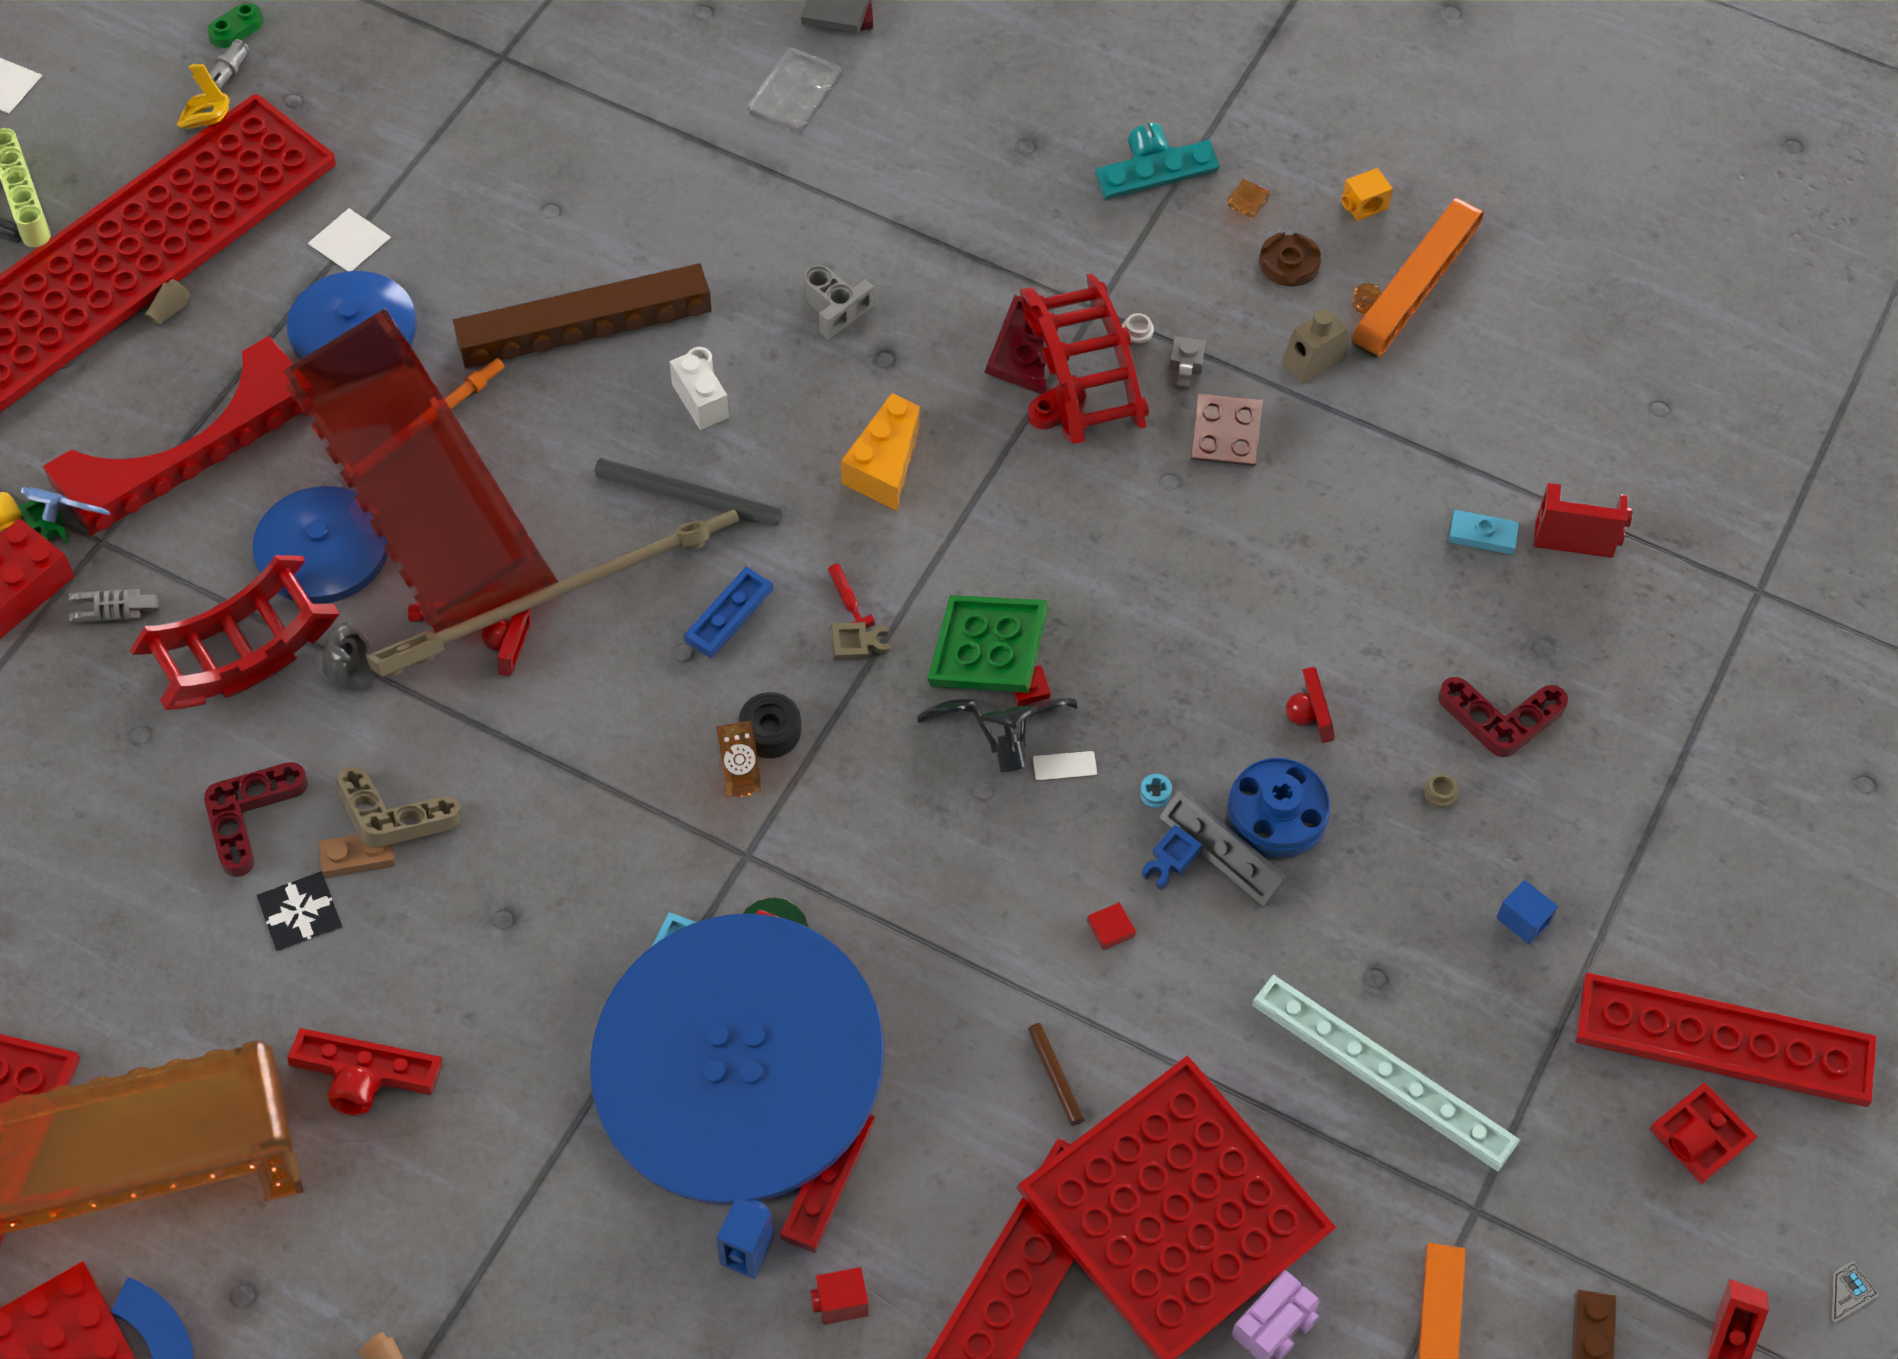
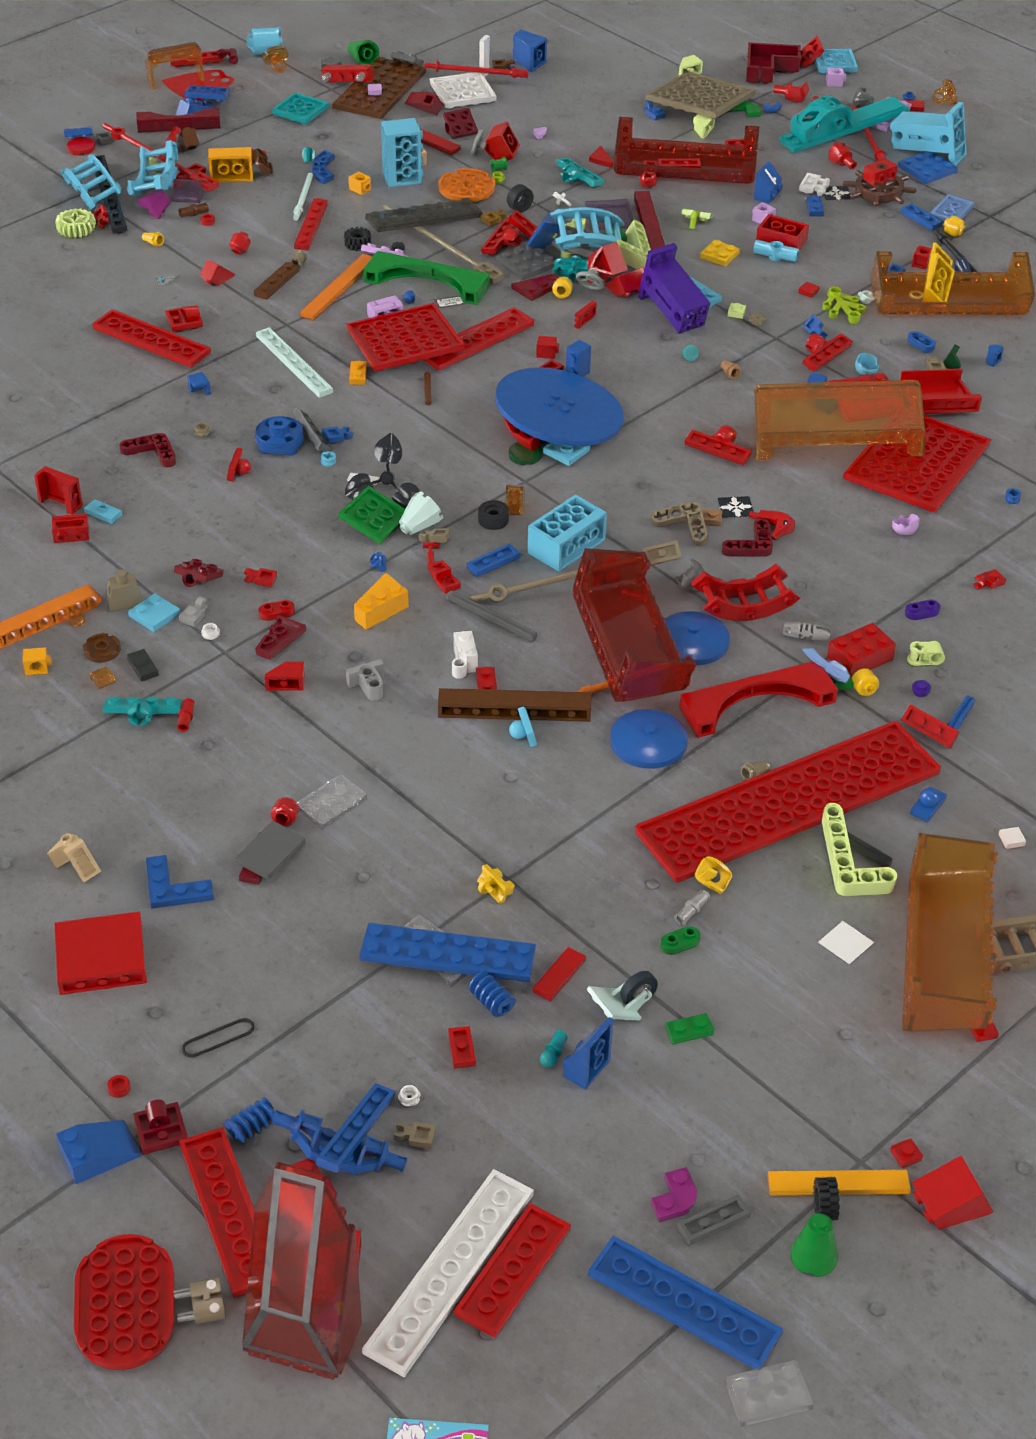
camera: 160 degrees left, 15 degrees down
(190, 865) = (783, 522): none -> red animal
(349, 240) = (638, 789): white sticker -> none
(522, 33) = (492, 883): none -> yellow hips
(551, 278) = (523, 728): none -> medium azure tile
(606, 688) = (565, 532): none -> medium azure brick
(646, 358) = (486, 678): none -> red plate
(801, 552) = (443, 576): none -> red slope
(851, 52) = (285, 811): none -> red head
(899, 666) = (419, 514): none -> light aqua cone
(933, 553) = (378, 560): none -> blue plate
(964, 269) = (286, 677): none -> red slope
(1058, 353) = (271, 594): red fence -> none
(1083, 170) = (185, 715): none -> red pin
(1111, 926) = (376, 423): red tile -> none
(1113, 457) = (262, 577): none -> red plate
(1206, 243) = (142, 664): none -> pearl dark grey tile
(1229, 1075) = (358, 372): none -> light orange plate
(1252, 346) = (154, 612): none -> medium azure plate
(1505, 465) = (70, 528): none -> red hinge

